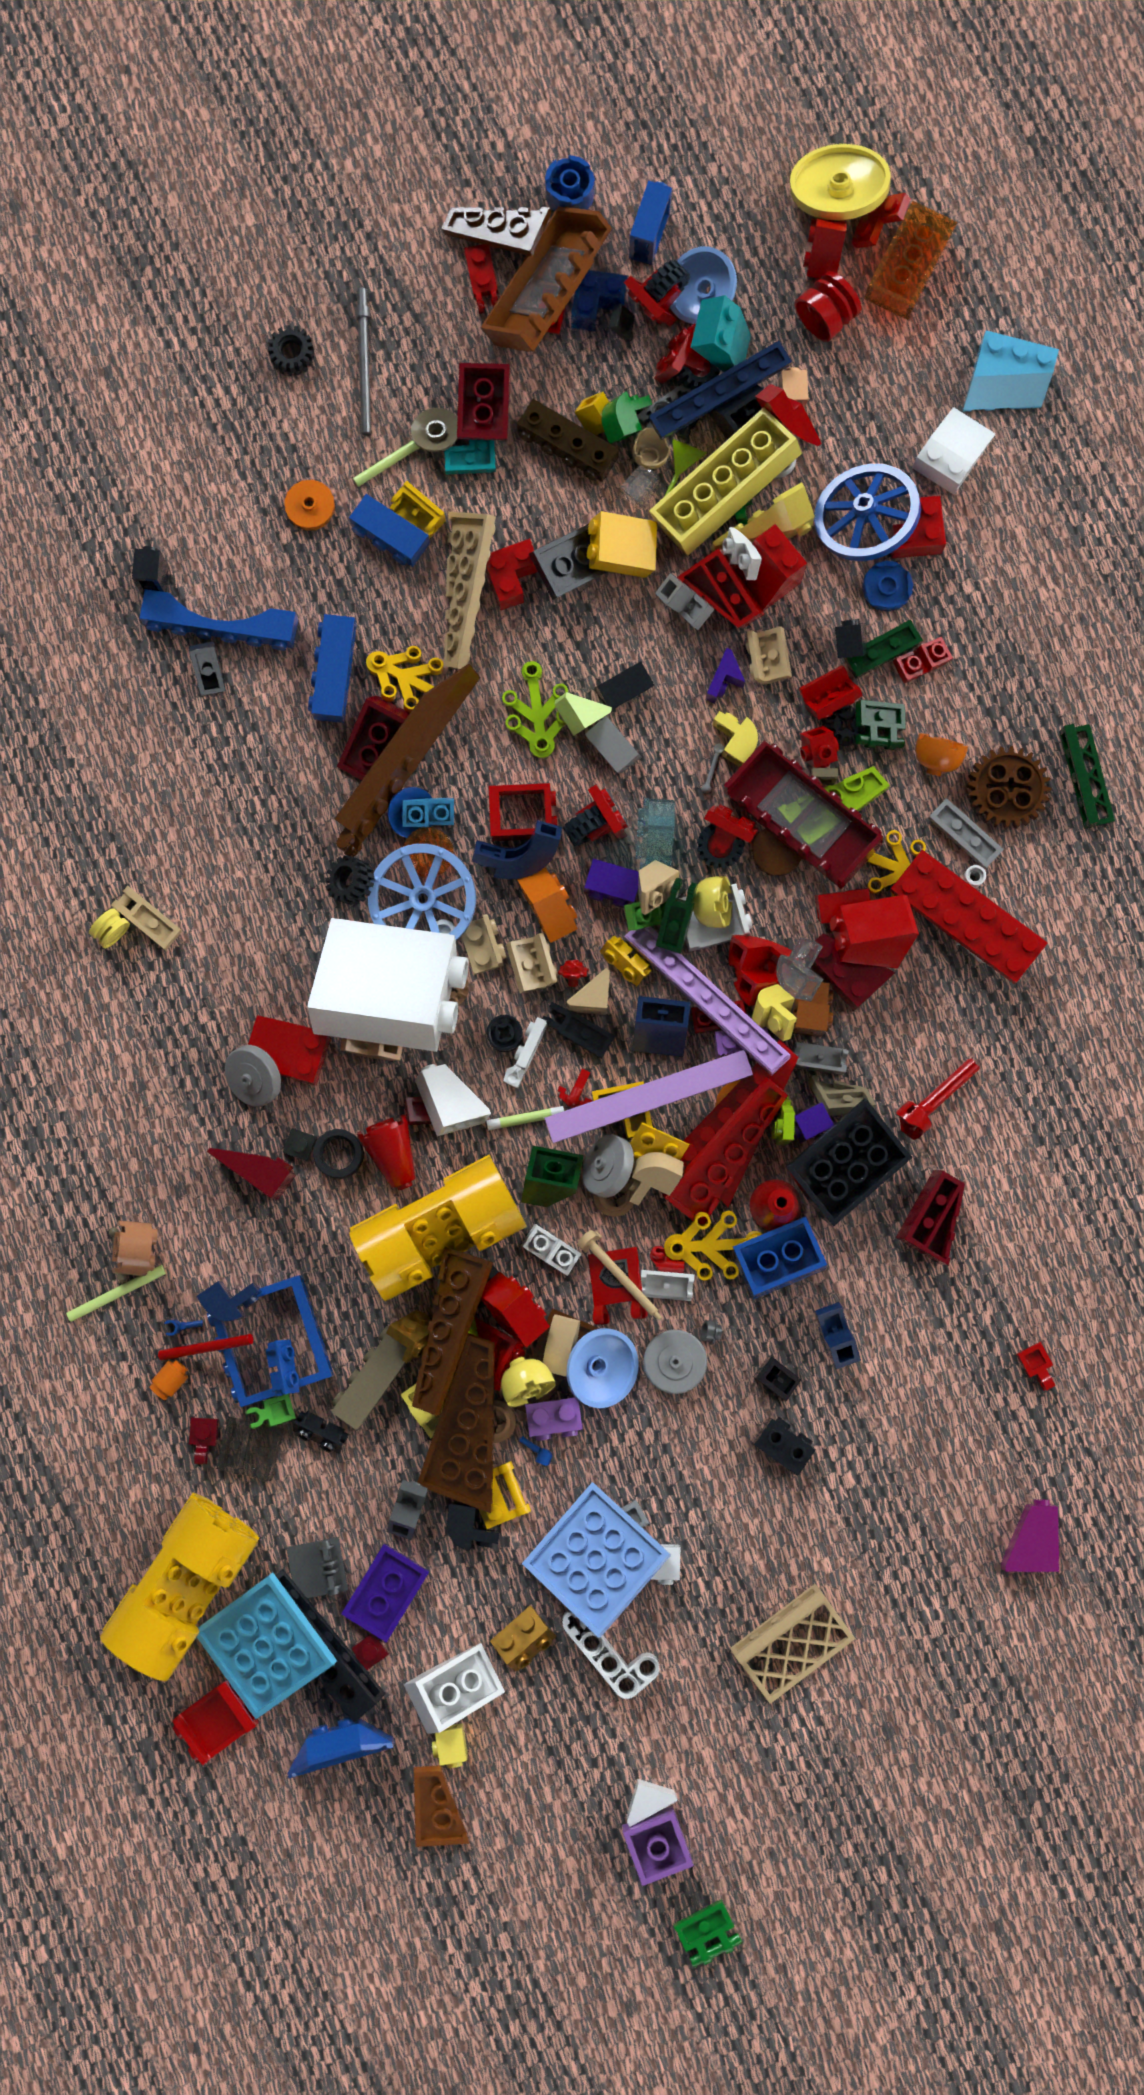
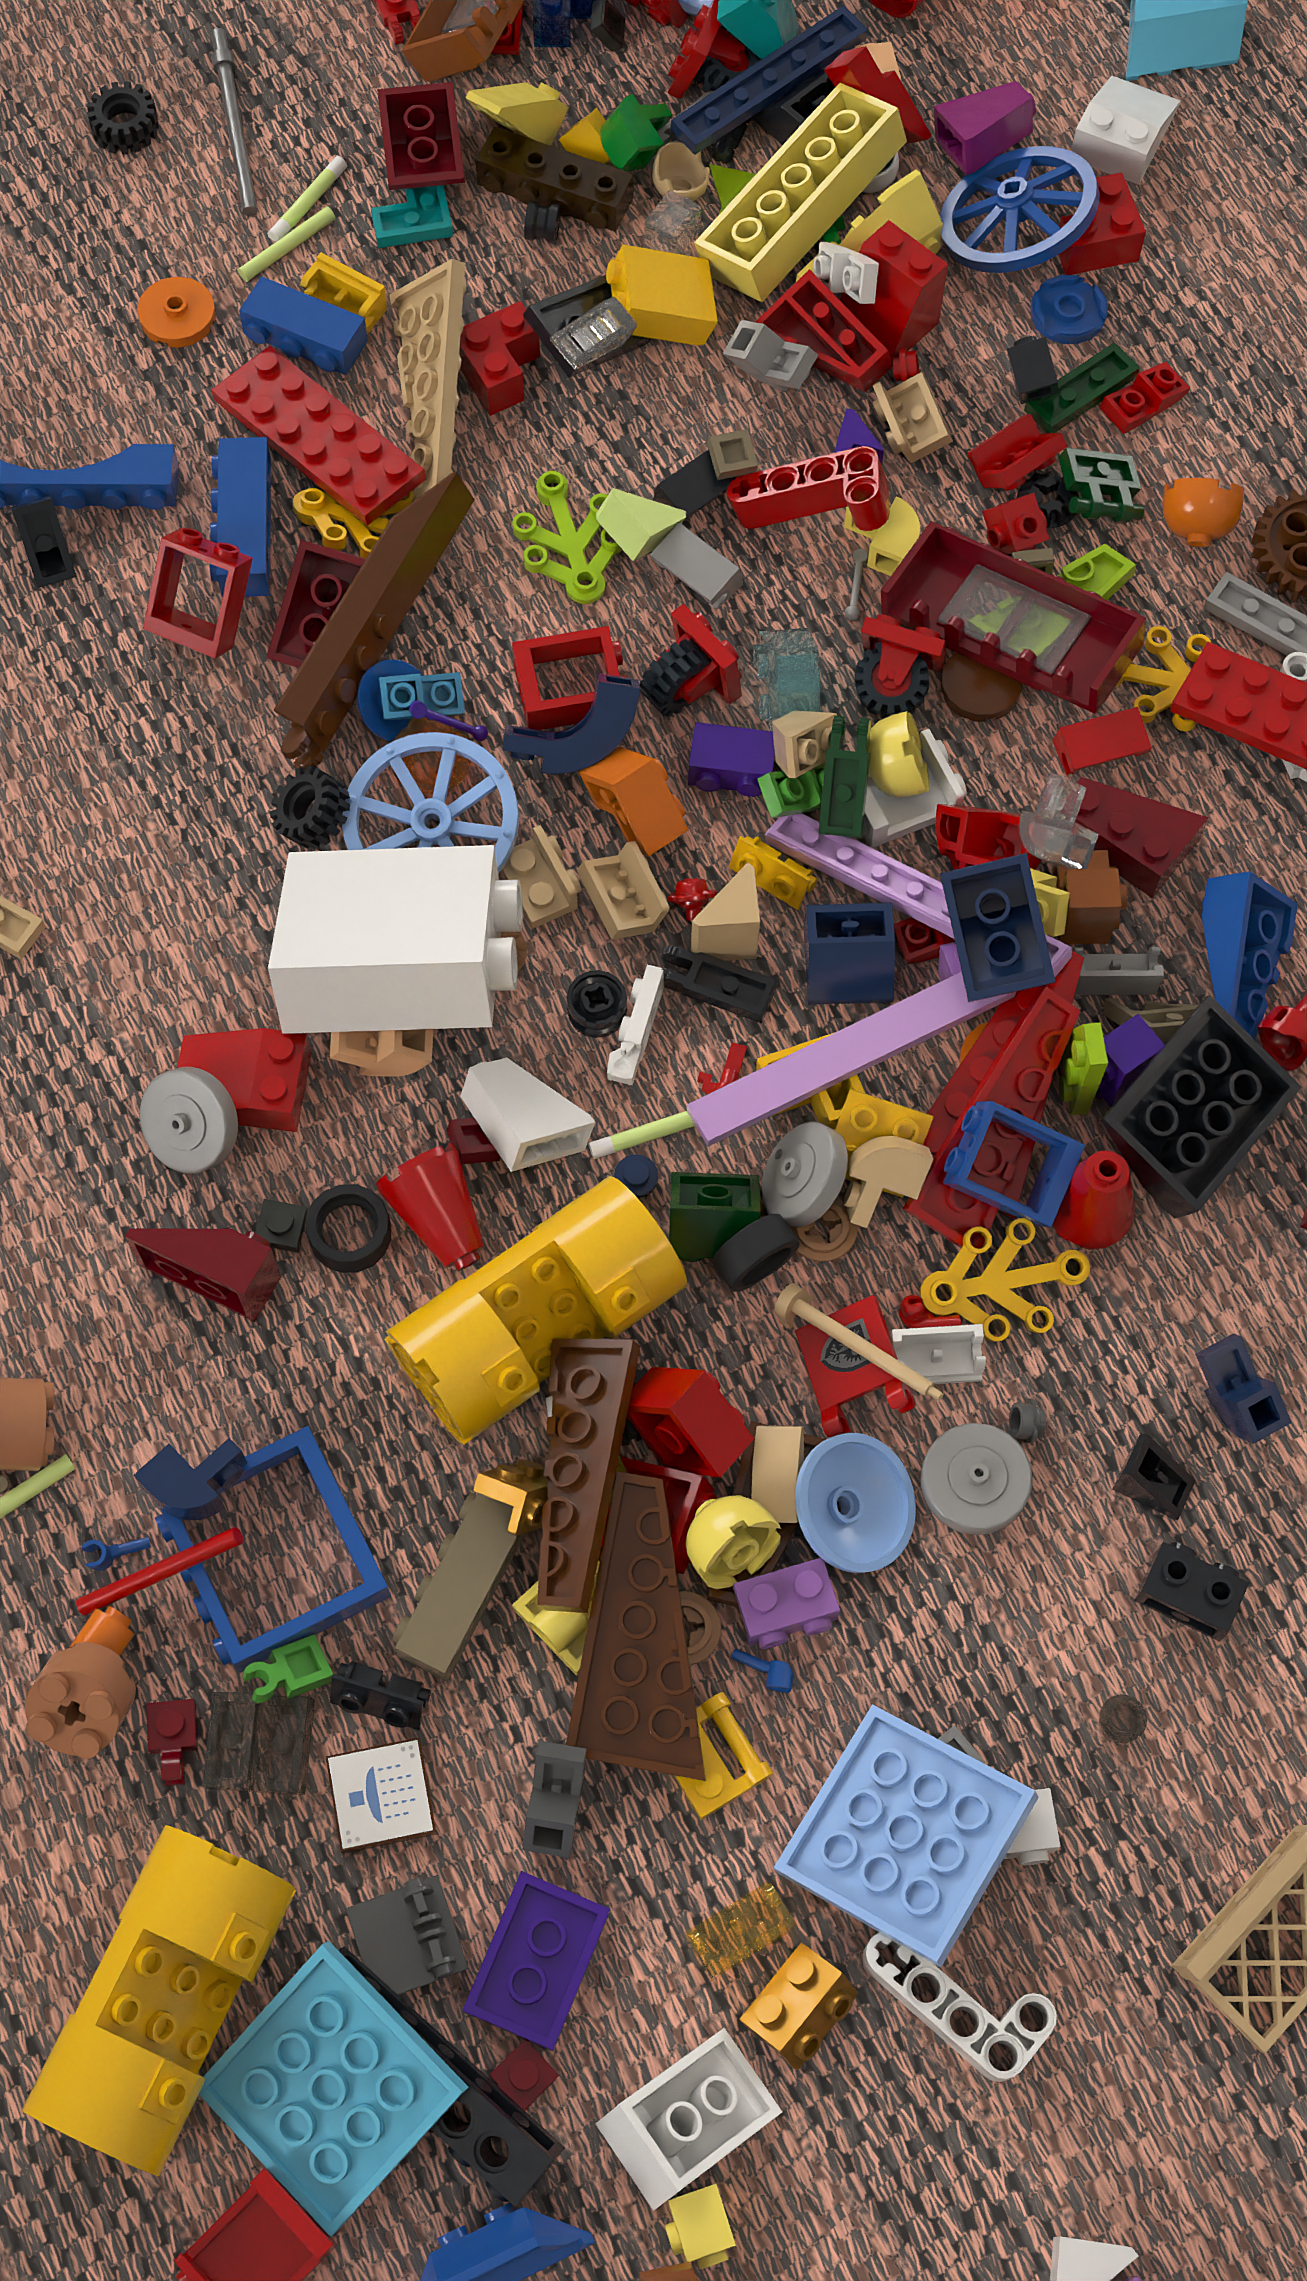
camera: 10 degrees left, 15 degrees down
(153, 1415) = (79, 1700): none -> nougat brick
(279, 734) = (182, 627): none -> red window
(281, 1355) = (294, 1561): blue hinge -> none
(313, 1488) = (380, 1795): none -> white tile
(388, 613) = (319, 435): none -> red plate
(402, 432) = (307, 199): none -> yellowish green bar
(424, 825) = (419, 710): none -> dark purple hinge
(432, 422) = (354, 188): dark tan dish -> none
(462, 1530) = (656, 1822): black brick -> none
(497, 1594) = (740, 1930): none -> clear yellow hinge
(511, 1146) = (637, 1174): none -> dark blue plate
(548, 392) = (522, 108): none -> light yellow wedge
(551, 1249) = (731, 1331): white slope -> none
(554, 472) = (542, 221): none -> black wheel
(571, 1209) = (755, 1252): none -> black tyre
(585, 565) = (610, 318): none -> clear slope
(647, 674) = (732, 454): none -> dark tan plate
(661, 702) = (813, 487): none -> red beam
(731, 1510) = (1122, 1718): none -> clear smoke plate
(747, 1038) = (997, 927): none -> dark blue slope
(750, 1195) = (1051, 1180): none -> blue window
(772, 617) = (905, 365): none -> red plate
(779, 1258) = (1119, 1281): blue slope -> none
(858, 440) = (984, 124): none -> magenta slope
(875, 931) = (1165, 758): red slope -> none
(901, 1051) = (1244, 934): none -> blue wedge

